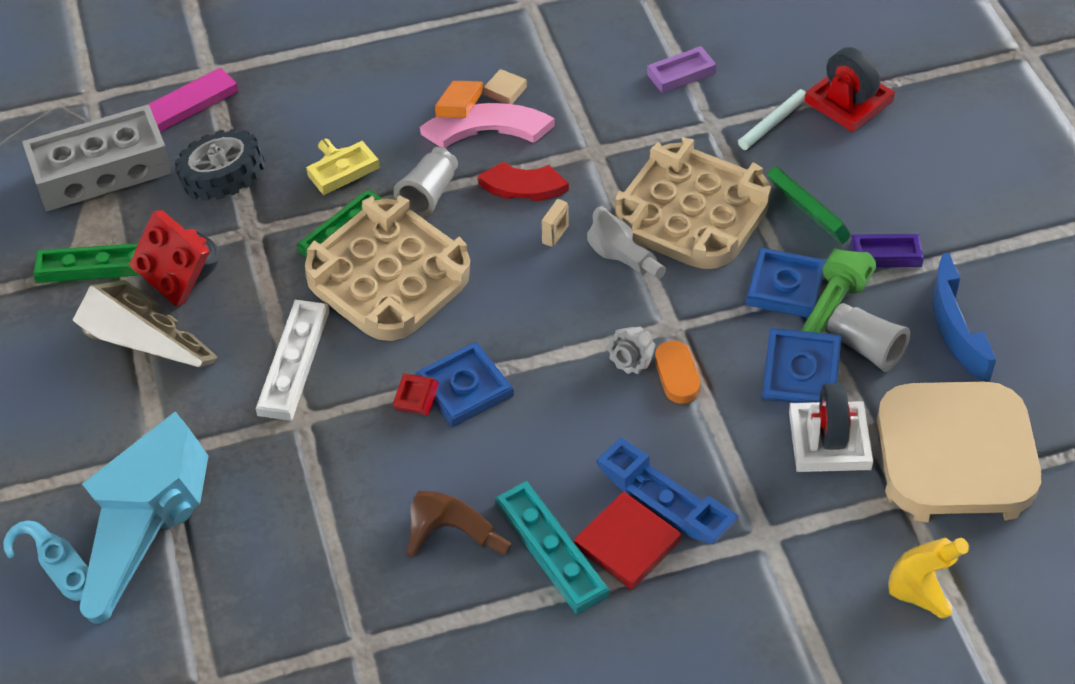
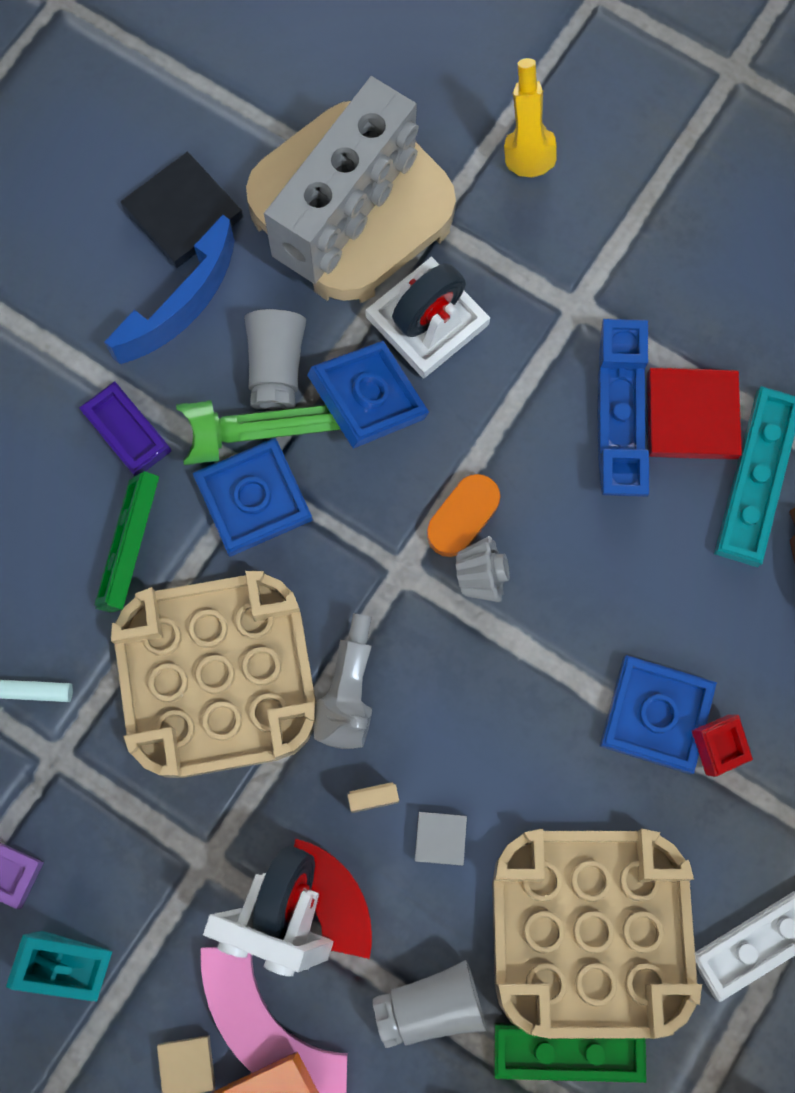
camera: 135 degrees left, 25 degrees up
(504, 243) = (440, 838): none -> light grey tile
(532, 132) = (275, 918): none -> white plate
(604, 62) = (58, 967): none -> teal slope
(960, 412) = (343, 180): none -> light grey brick
(1030, 362) = (180, 207): none -> black tile

